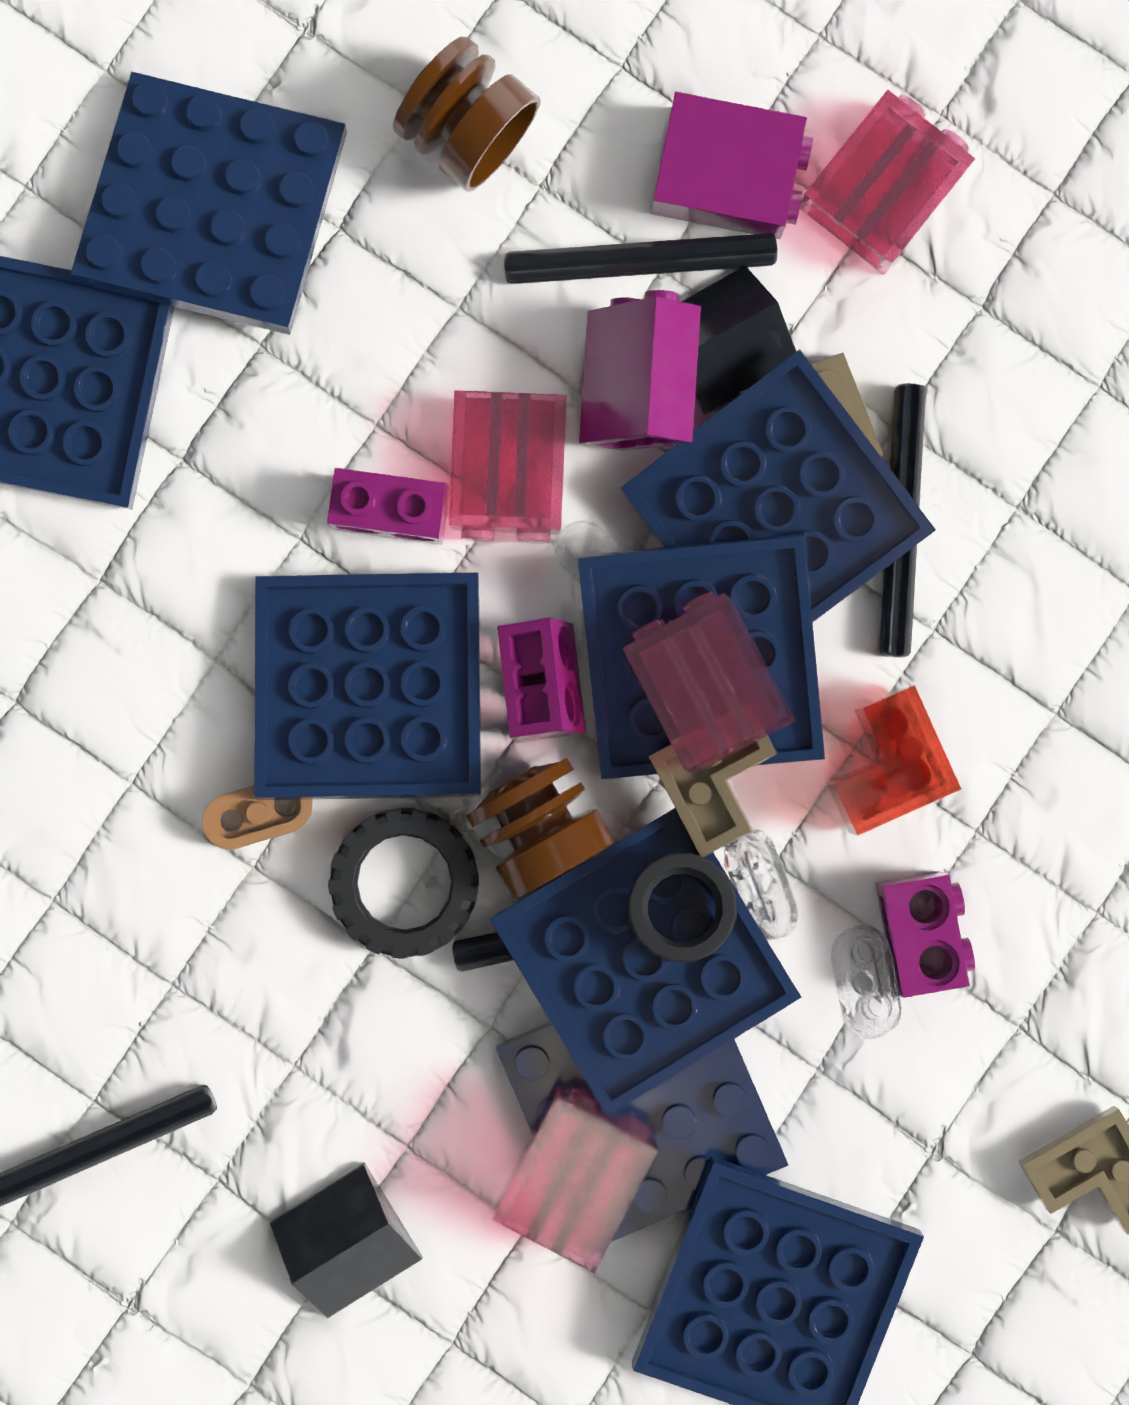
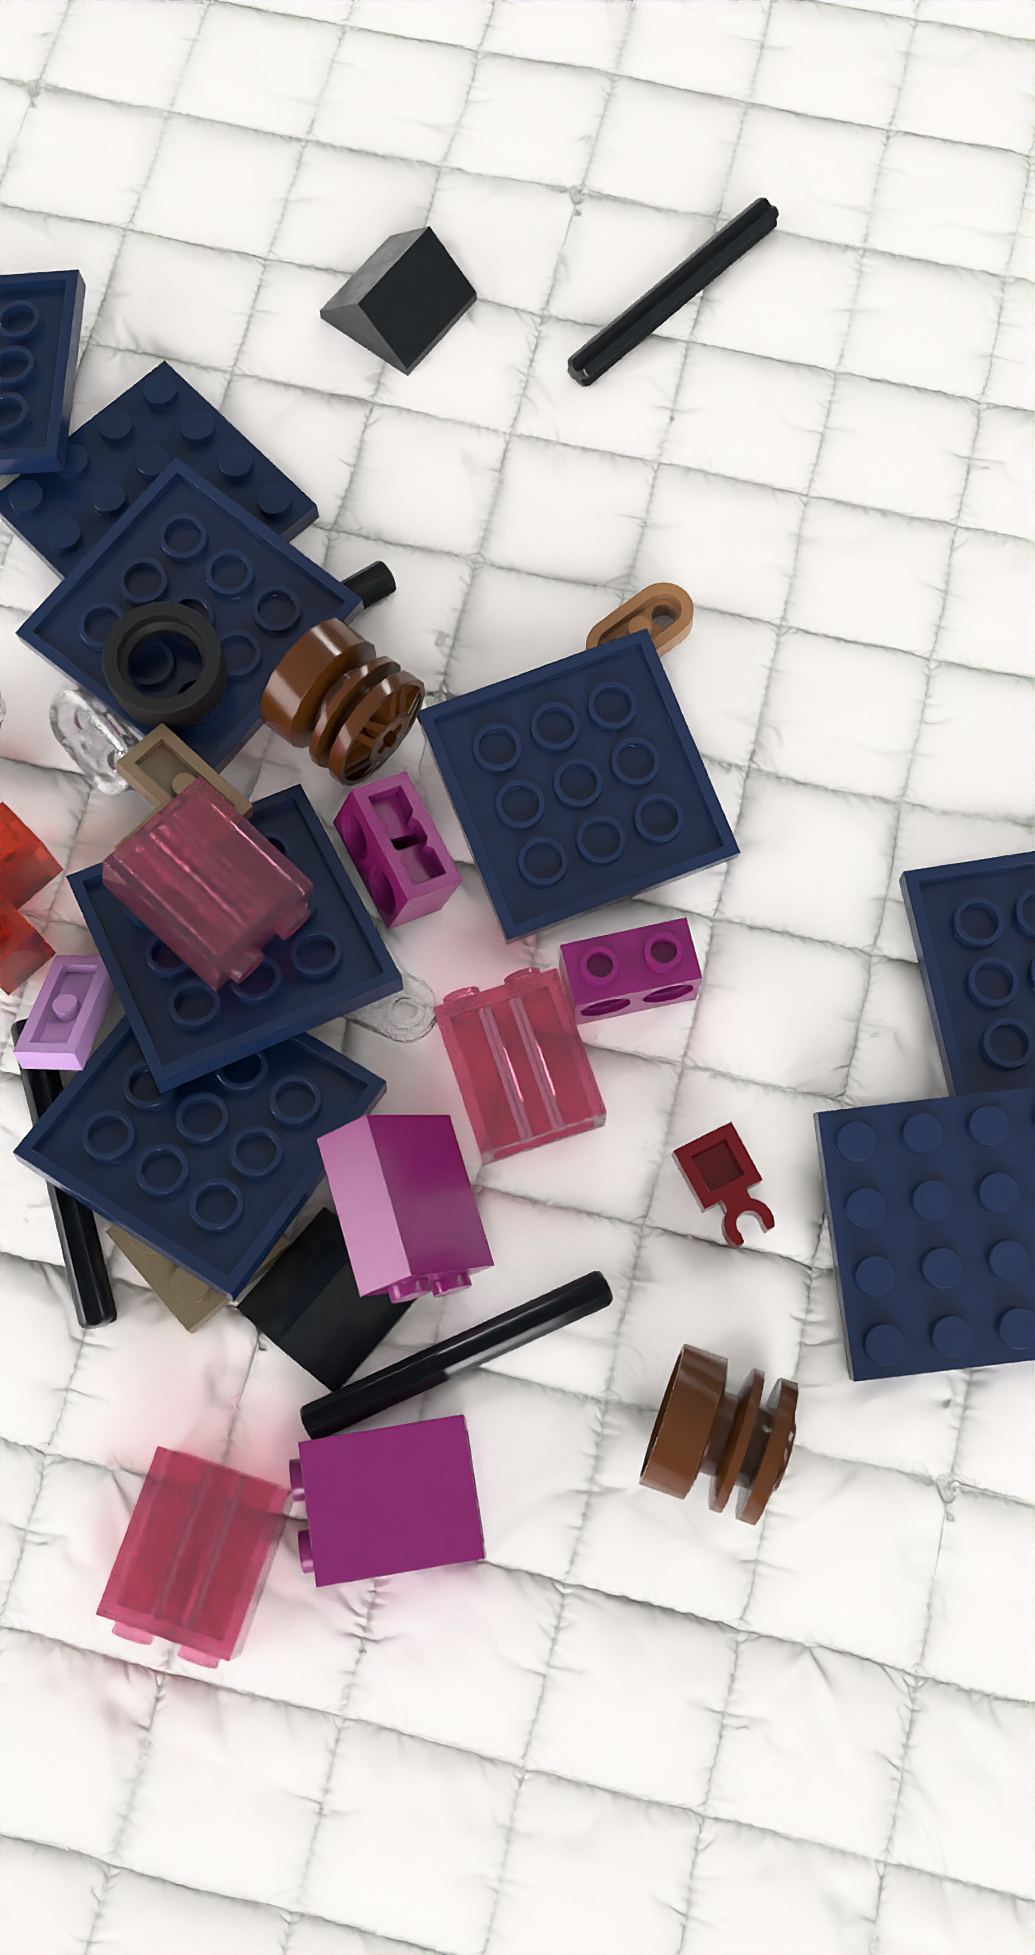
camera: 155 degrees right, 15 degrees down
(346, 894) = (455, 566): black tyre -> none
(381, 318) = (720, 1174): none -> dark red plate
(576, 1178) = (189, 398): clear pink brick -> none
(860, 642) = (66, 1014): none -> lavender plate

